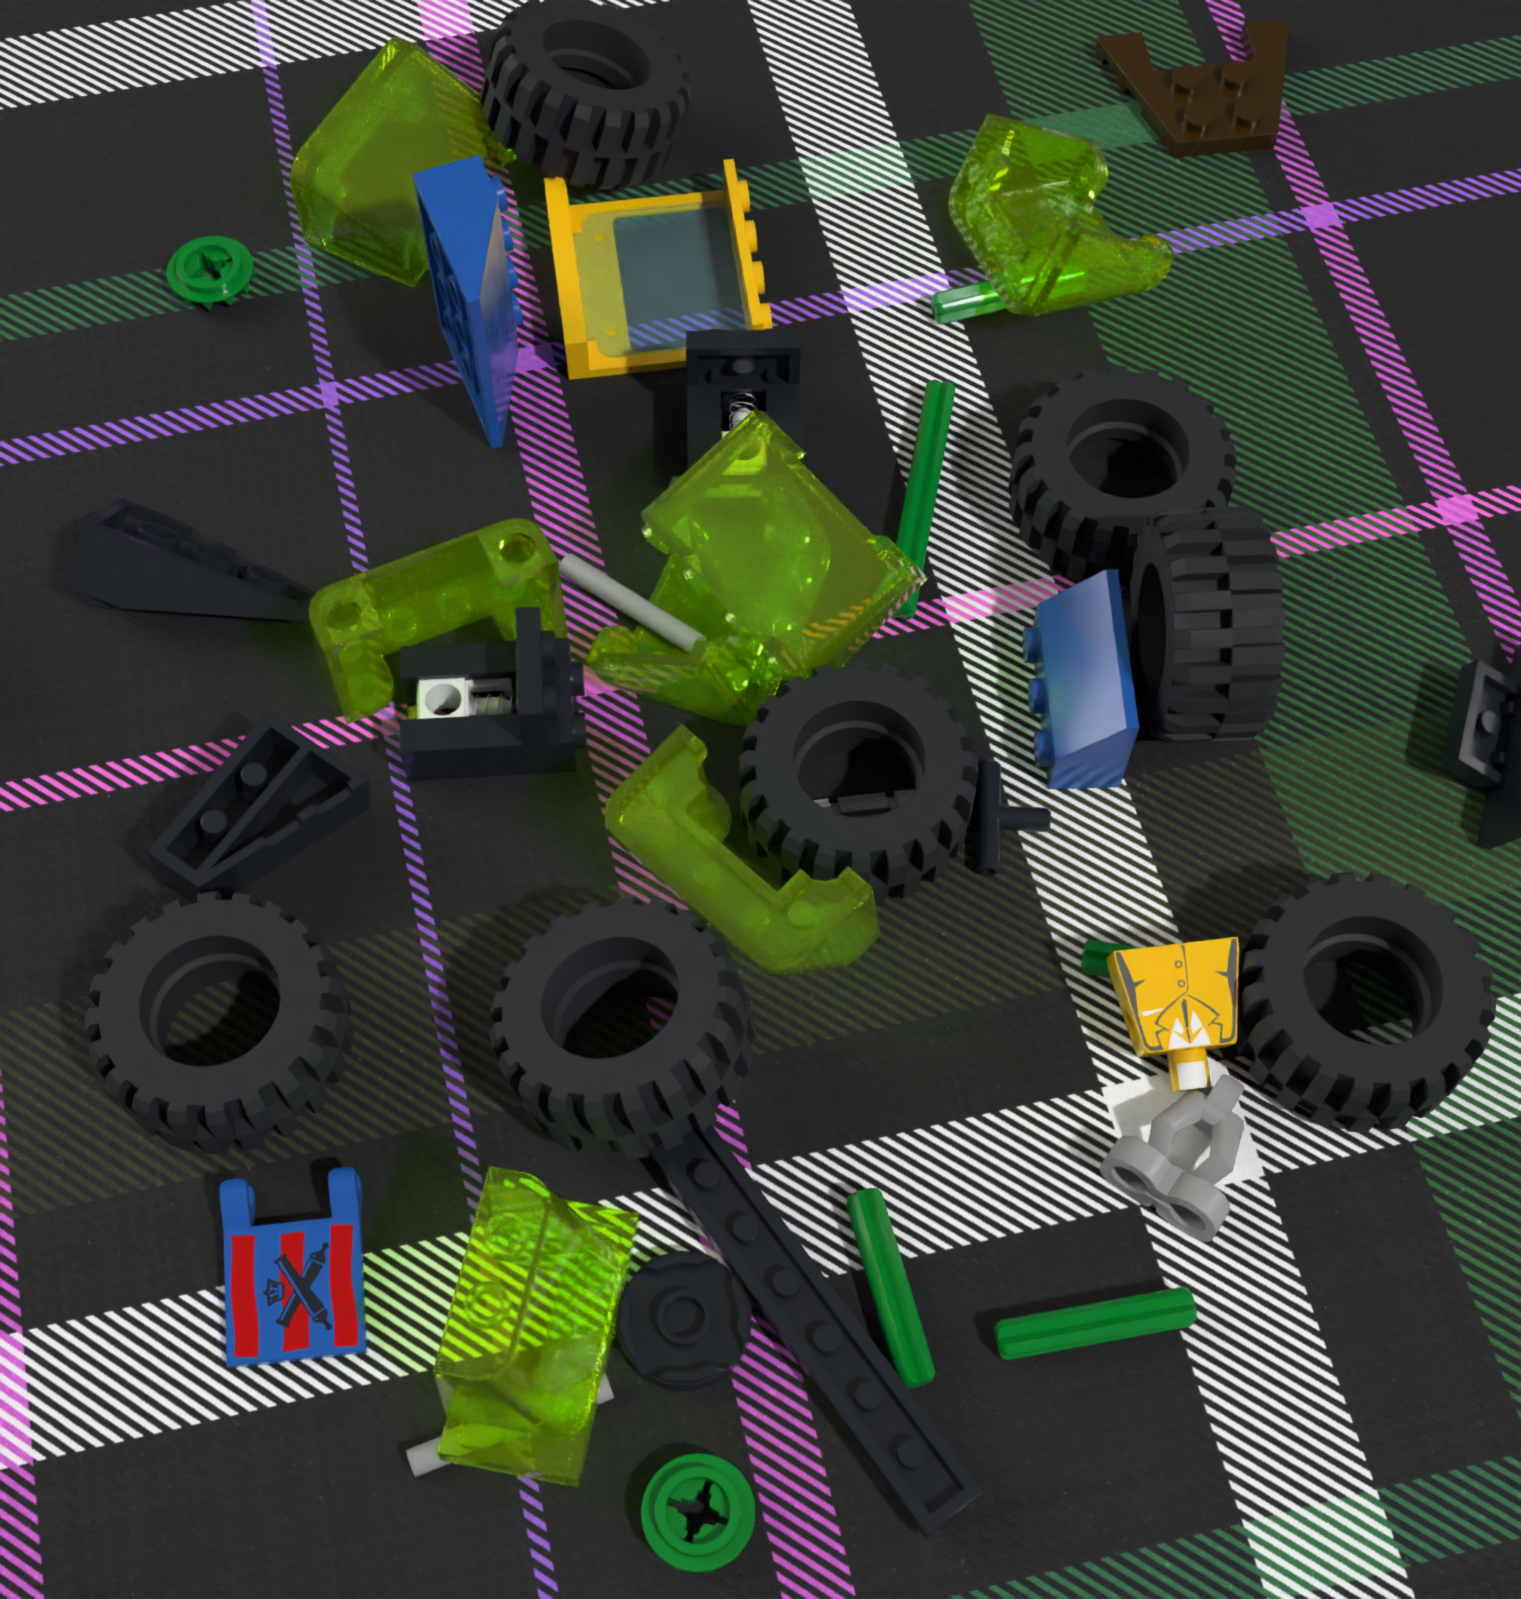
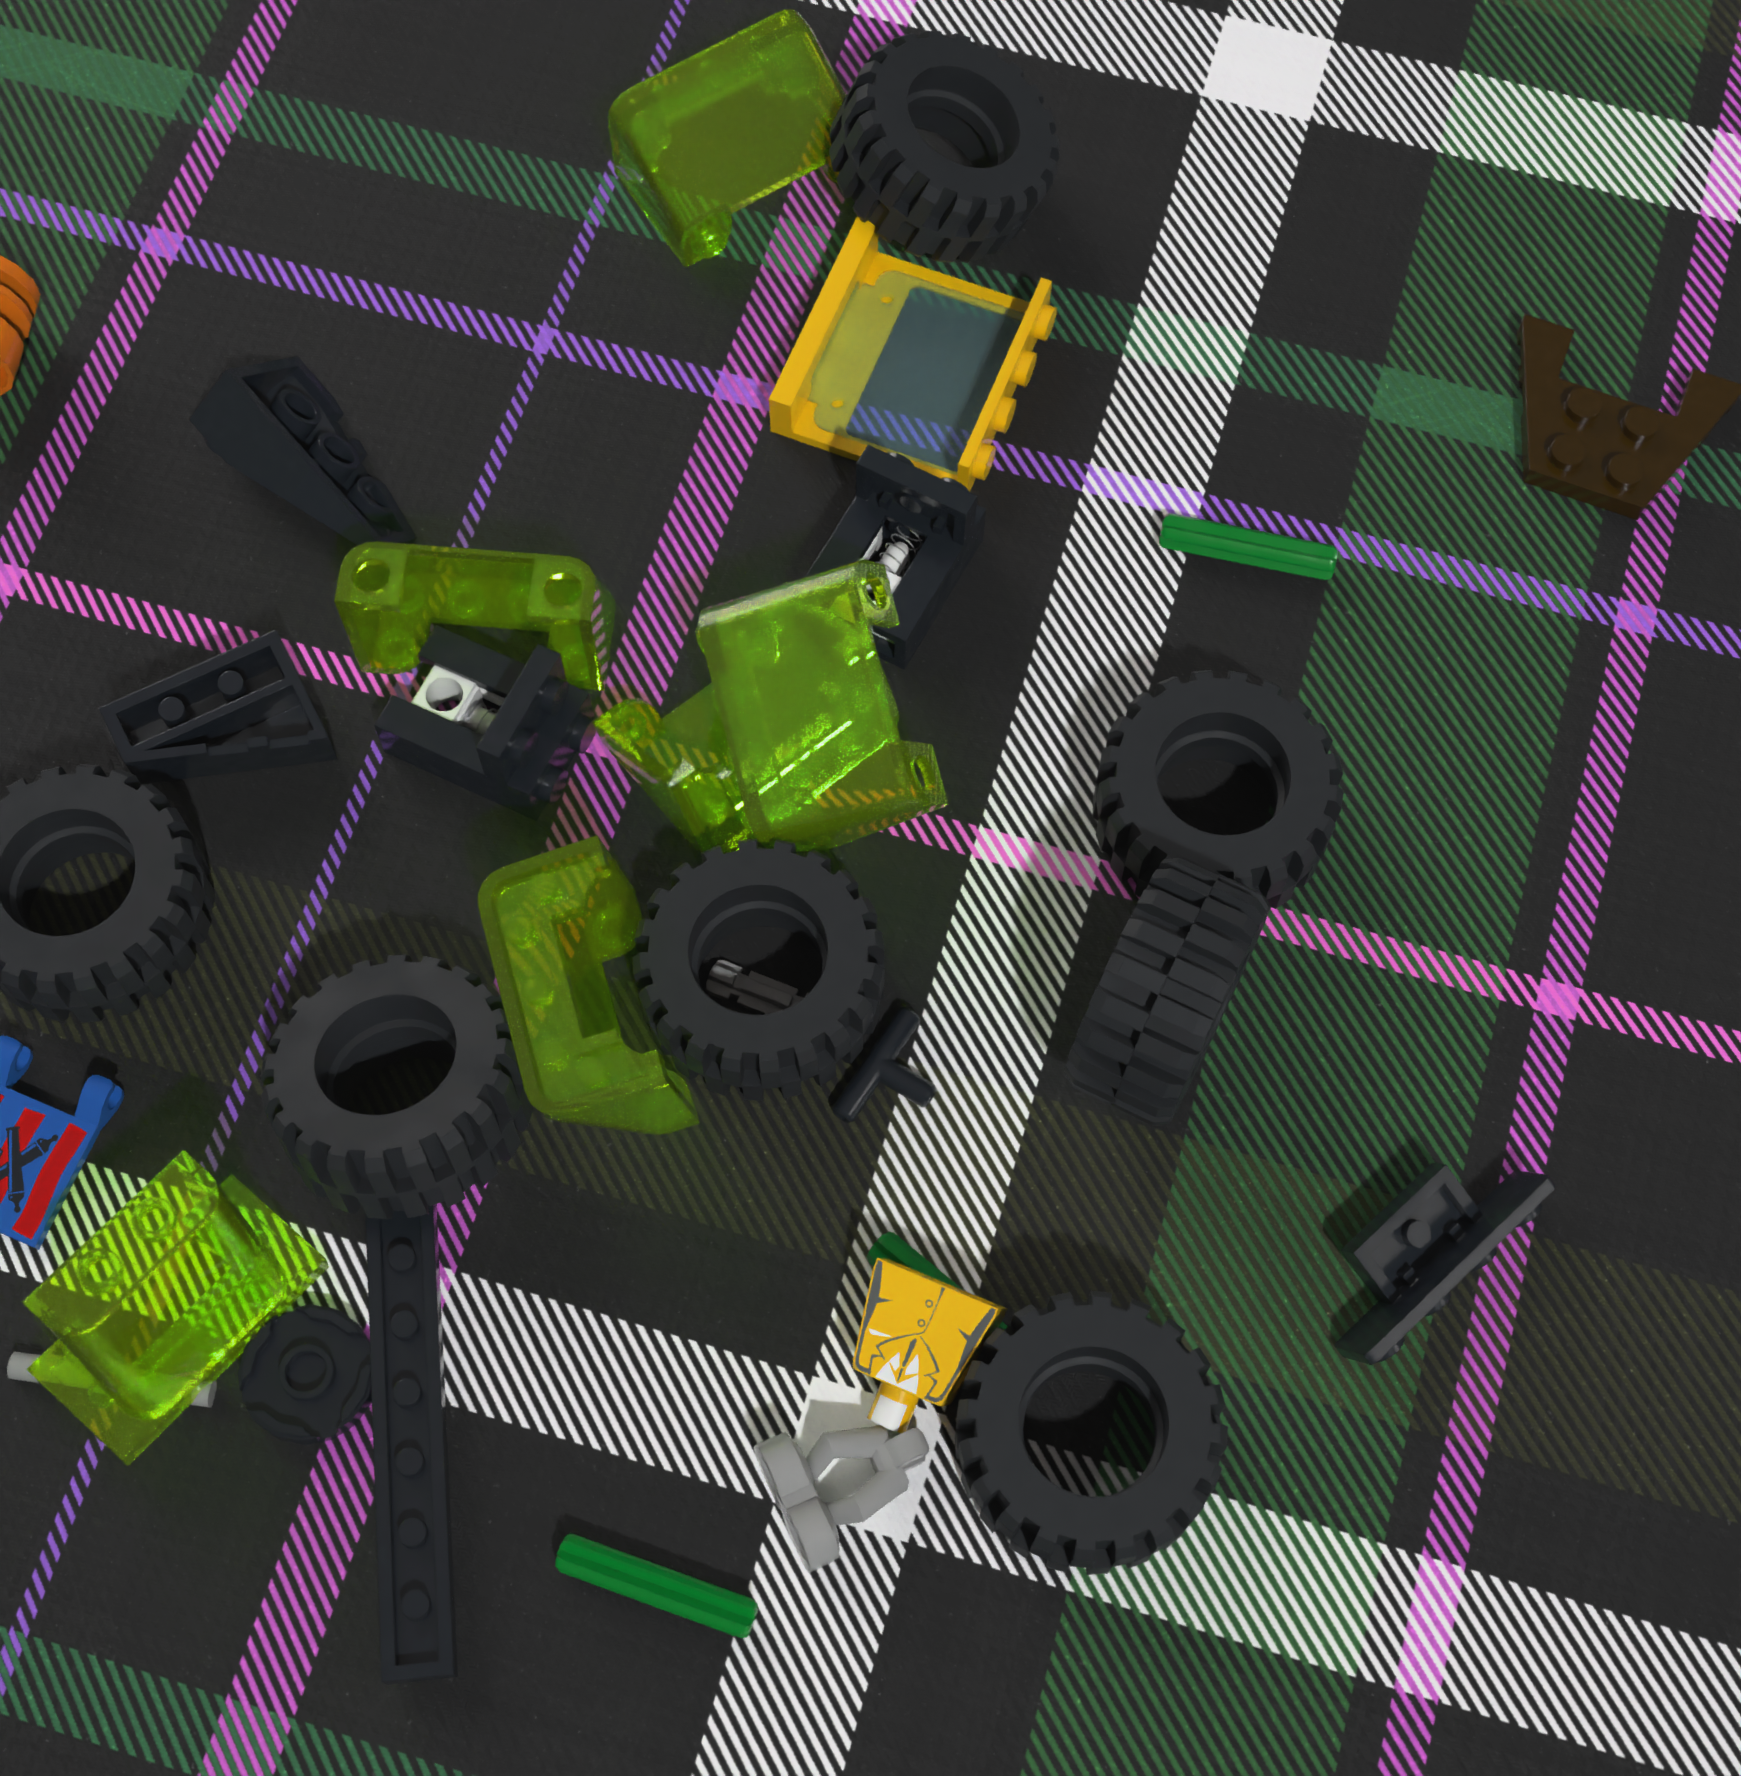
camera: 30 degrees right, 5 degrees up
(222, 256) = (487, 157): green gear -> none
(473, 281) = (697, 309): blue slope -> none
(630, 603) = (680, 687): light grey bar -> none
(681, 1483) = (179, 1545): green gear -> none
(890, 1288) = (498, 1449): green axle -> none
(924, 480) = (1025, 711): green axle -> none
(1034, 225) = (1323, 492): clear neon green windscreen -> none
(1082, 685) = (1033, 985): blue slope -> none

